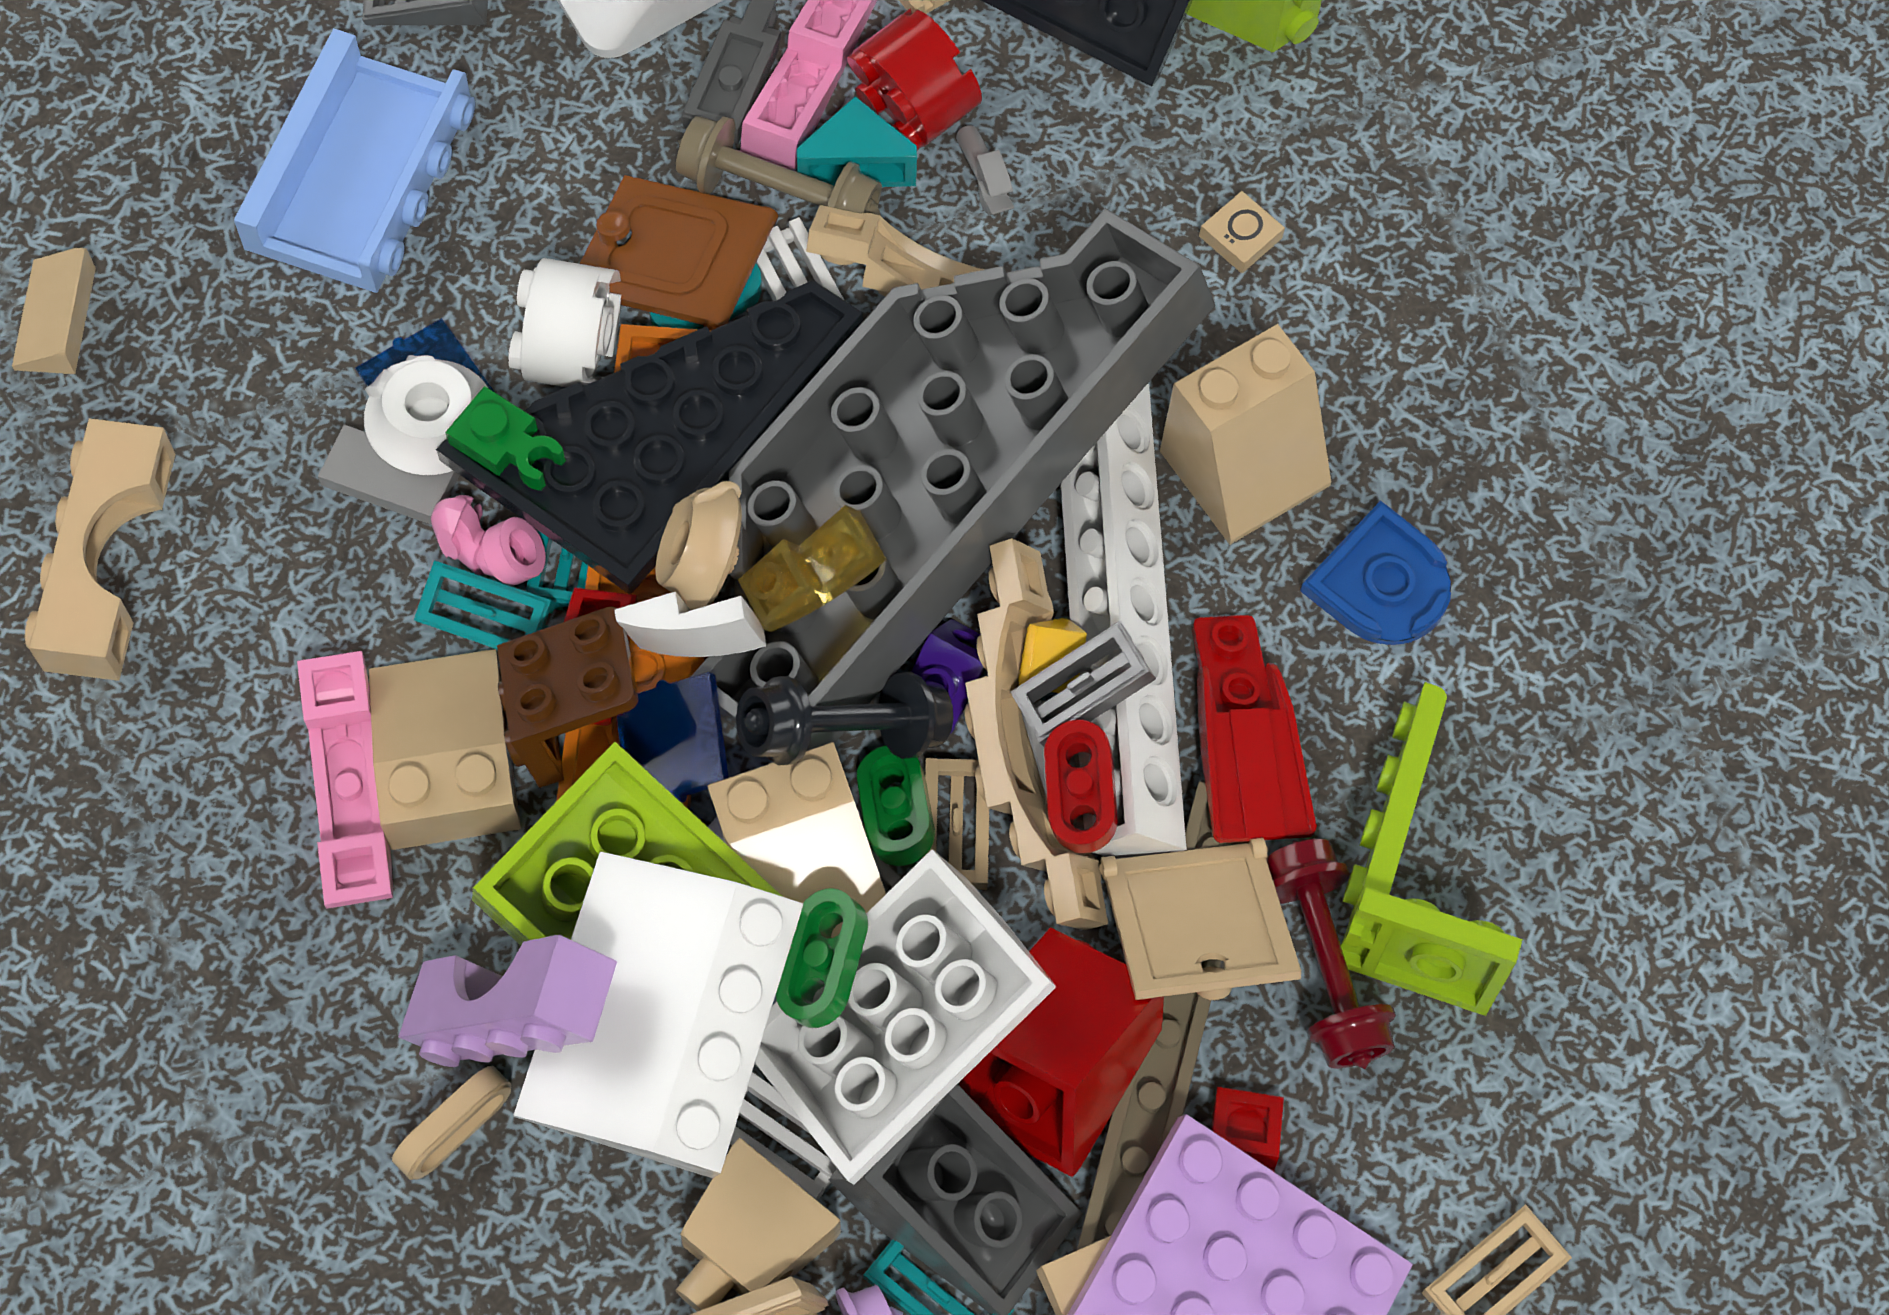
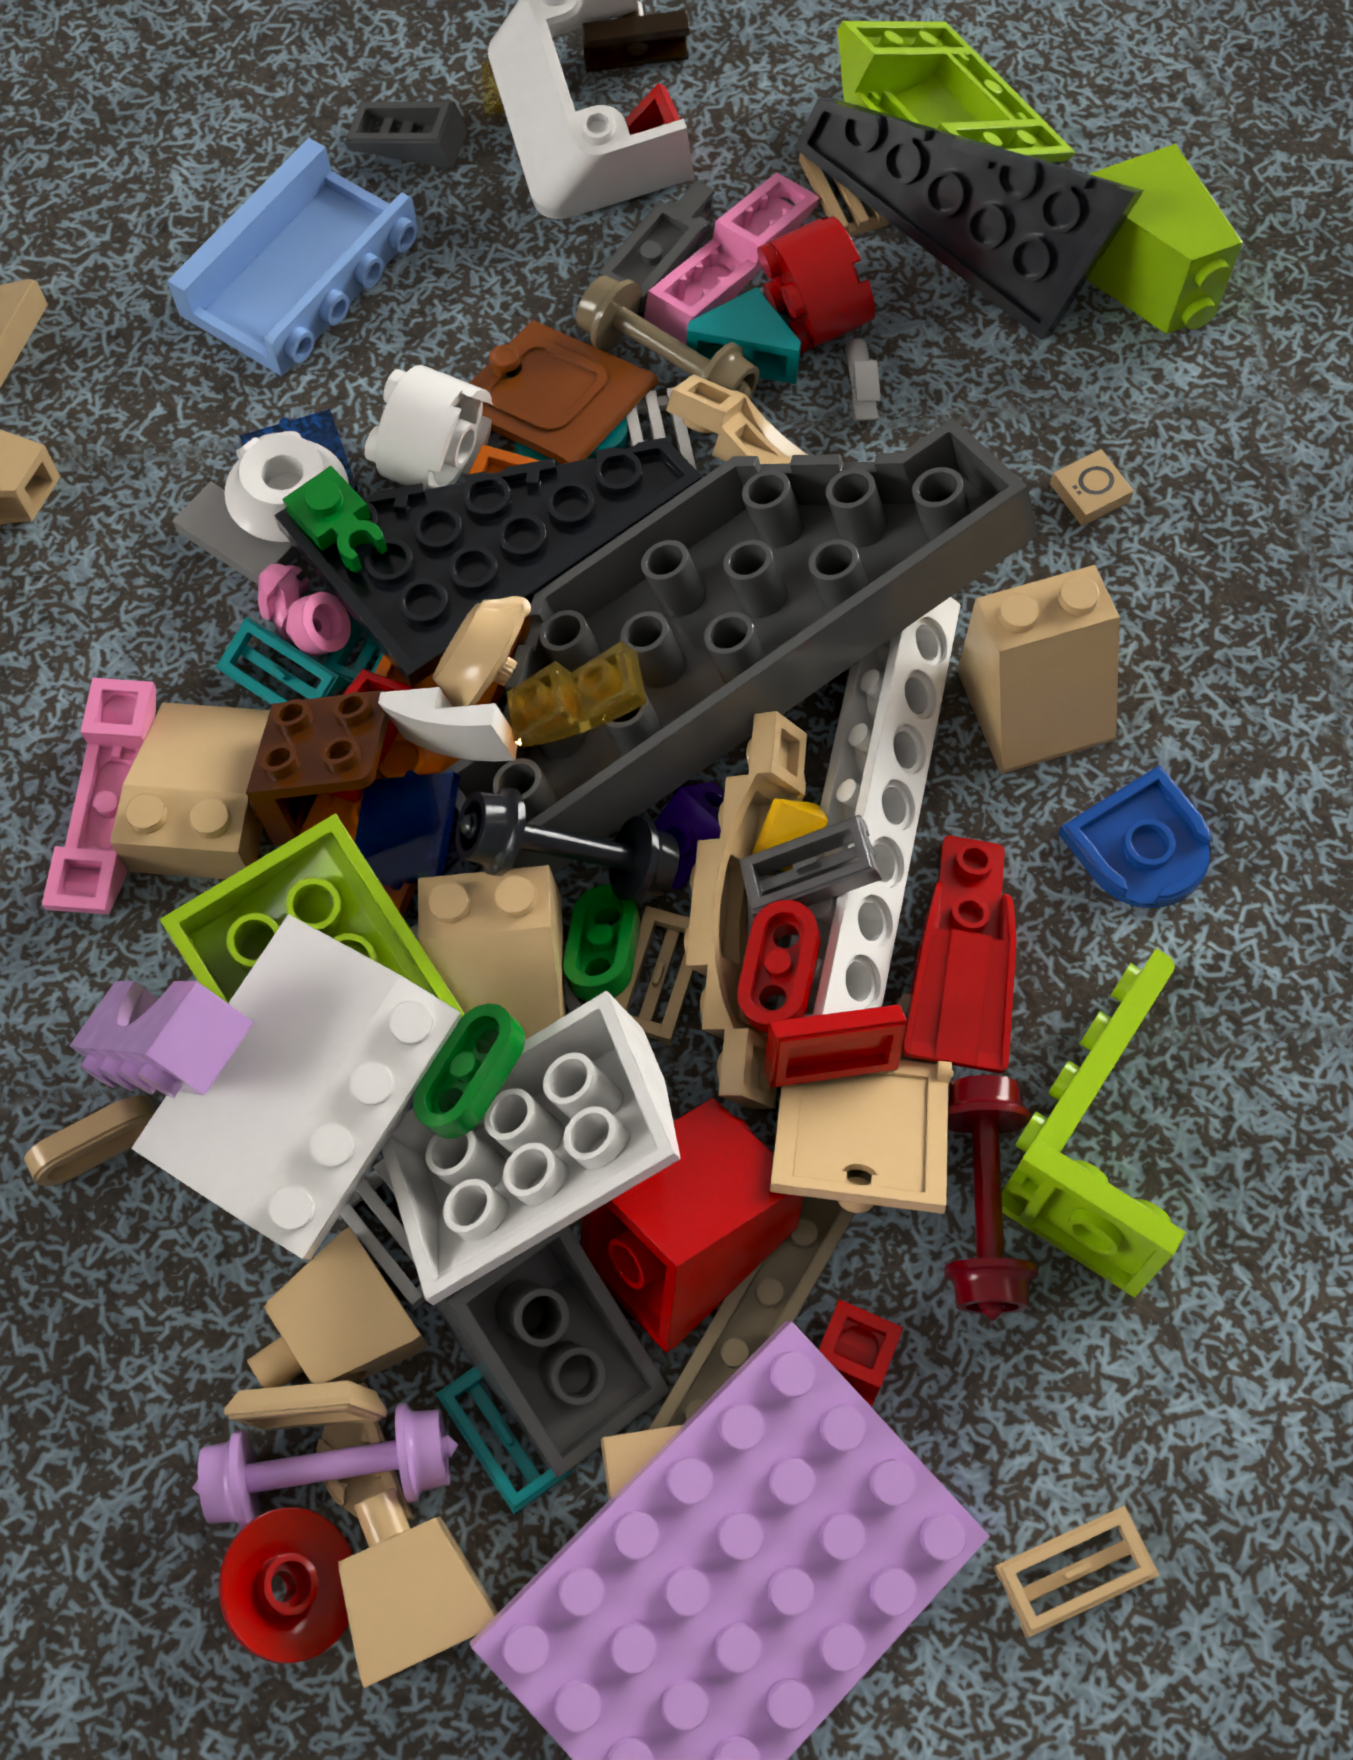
camera: 20 degrees right, 0 degrees up
(1152, 849) = (834, 1045): none -> red tile

